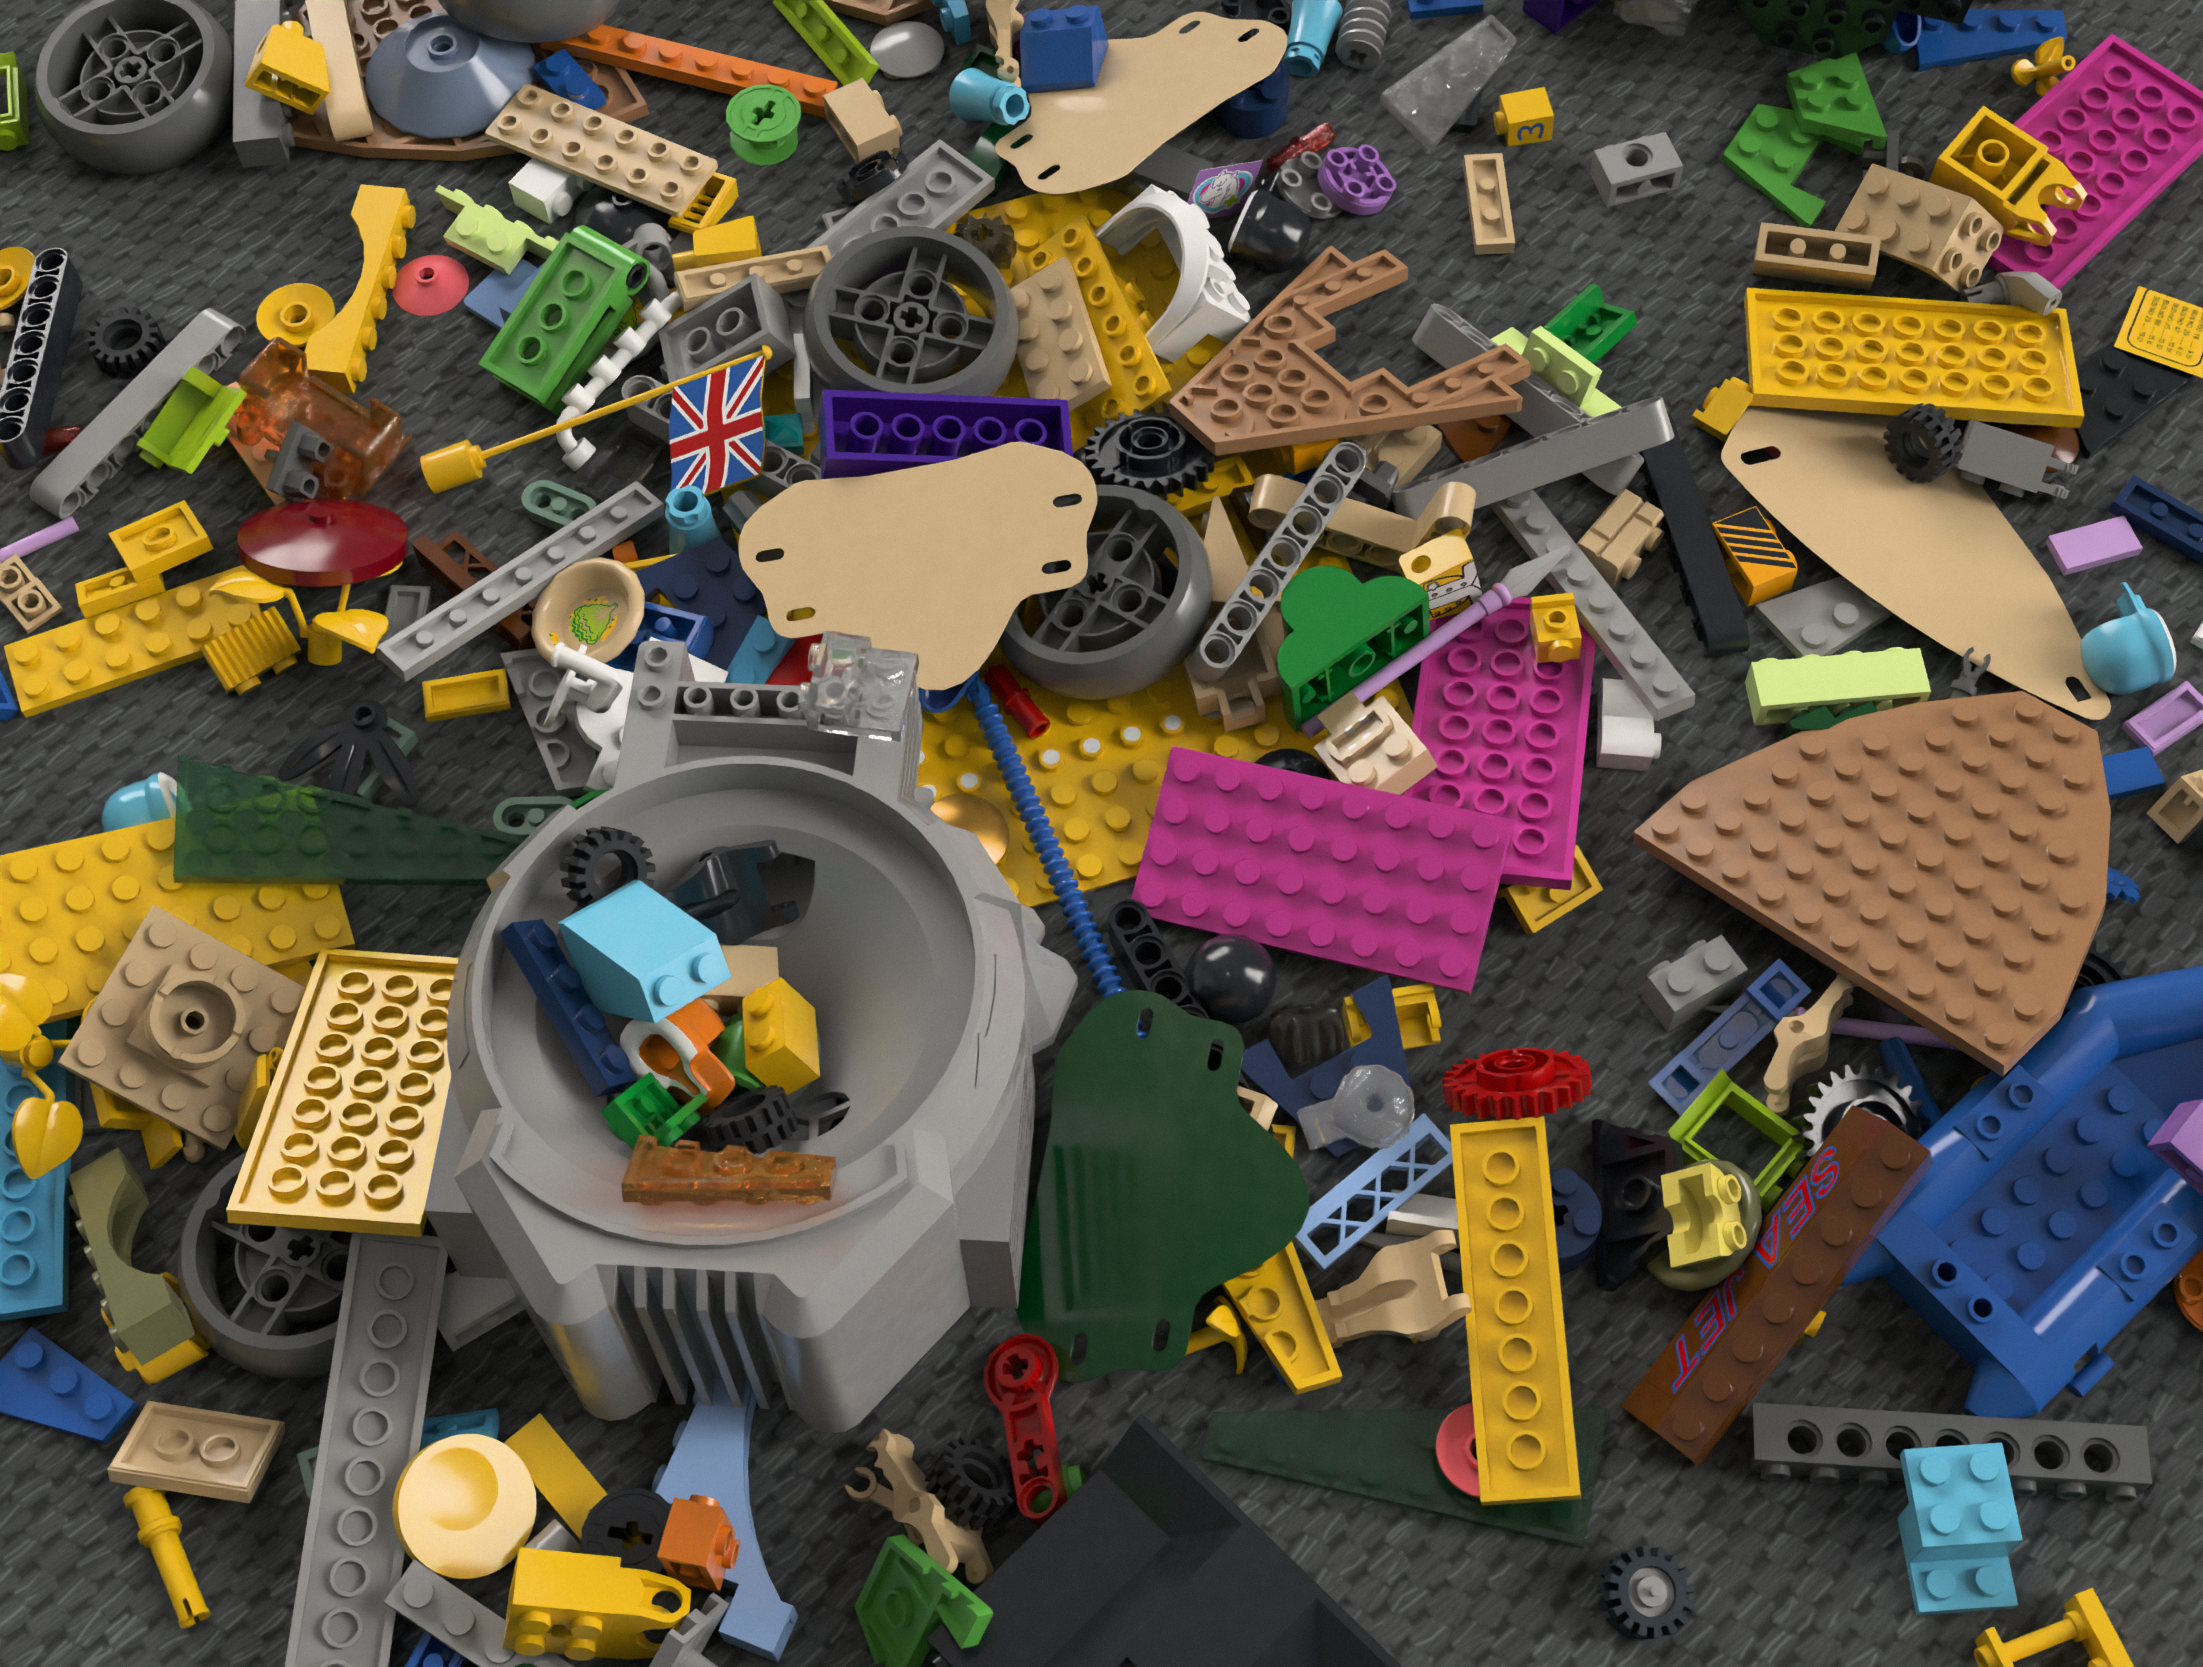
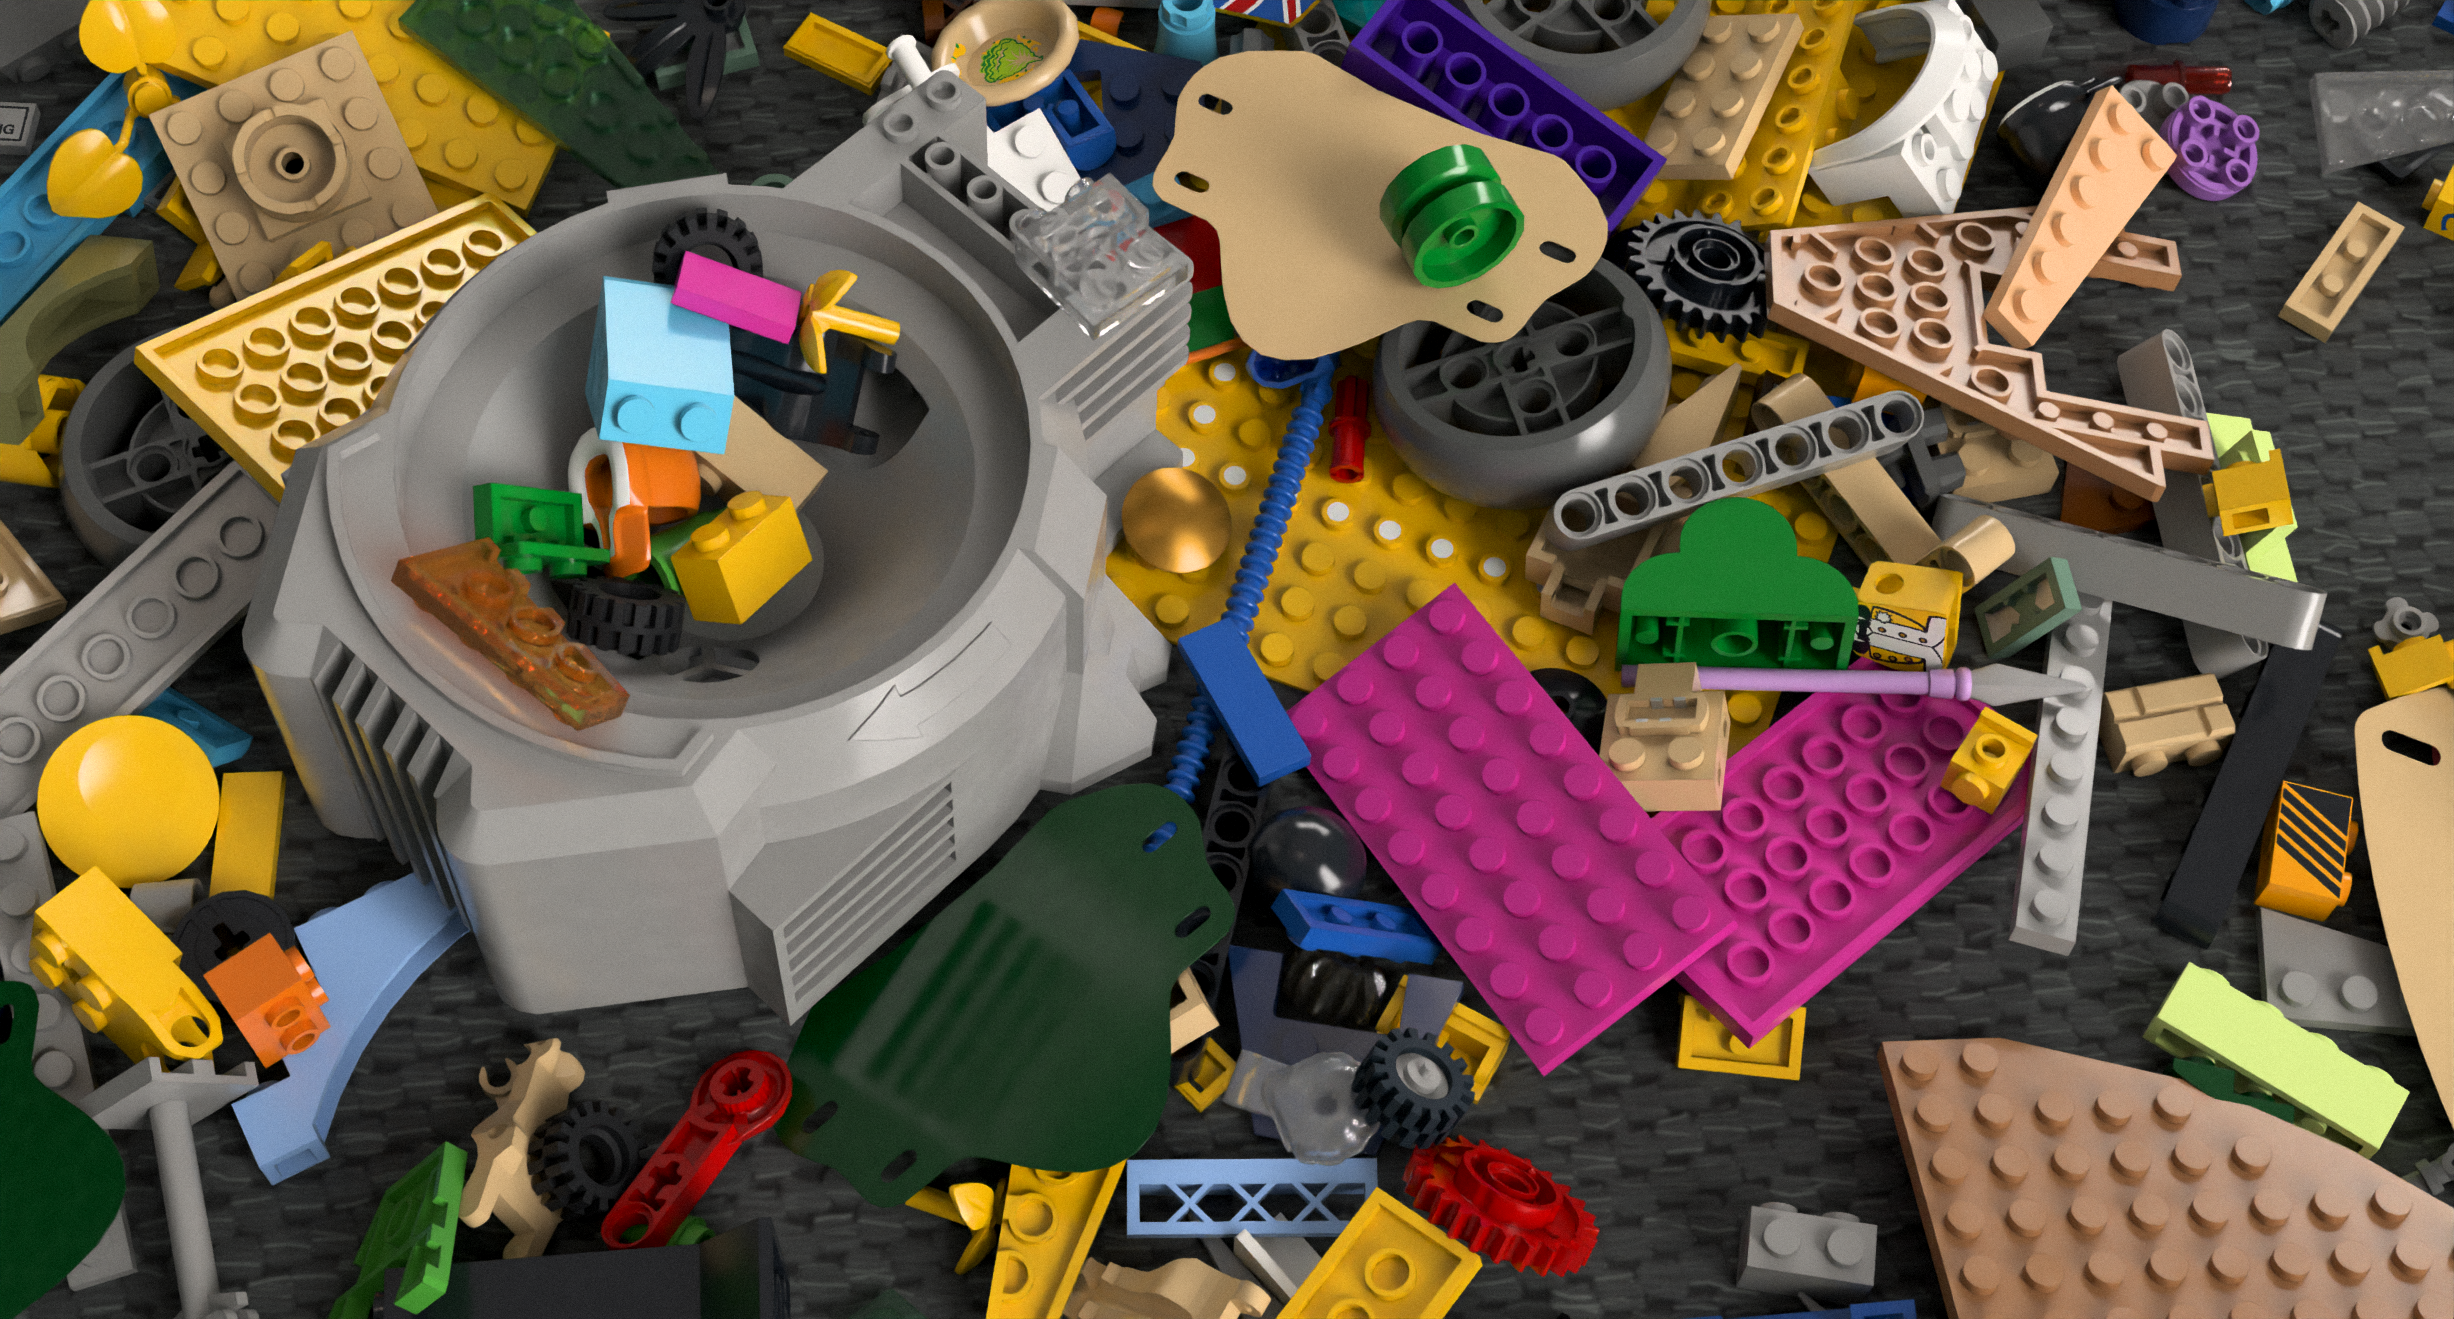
camera: 35 degrees right, 0 degrees up
(569, 1007) = (553, 370): dark blue plate -> none
(651, 875) = (736, 297): none -> dark pink tile
(713, 842) = (820, 313): none -> yellow plant
(998, 521) = (1451, 216): none -> green wheel
(1110, 909) = (1244, 702): none -> blue tile
(1224, 189) = (2037, 57): sticker -> none
(1295, 991) = (1356, 927): none -> blue plate
(1328, 262) = (2088, 202): none -> light nougat wing
(1417, 1054) = (1413, 1088): none -> black wheel
(1497, 524) = (2028, 608): none -> sand green piece
(1567, 370) = (2250, 496): none -> yellow brick
(1591, 324) = (2338, 475): green bracket -> none
(1624, 729) = (1974, 931): white brick -> none
(1687, 395) = (2399, 612): none -> light grey plate

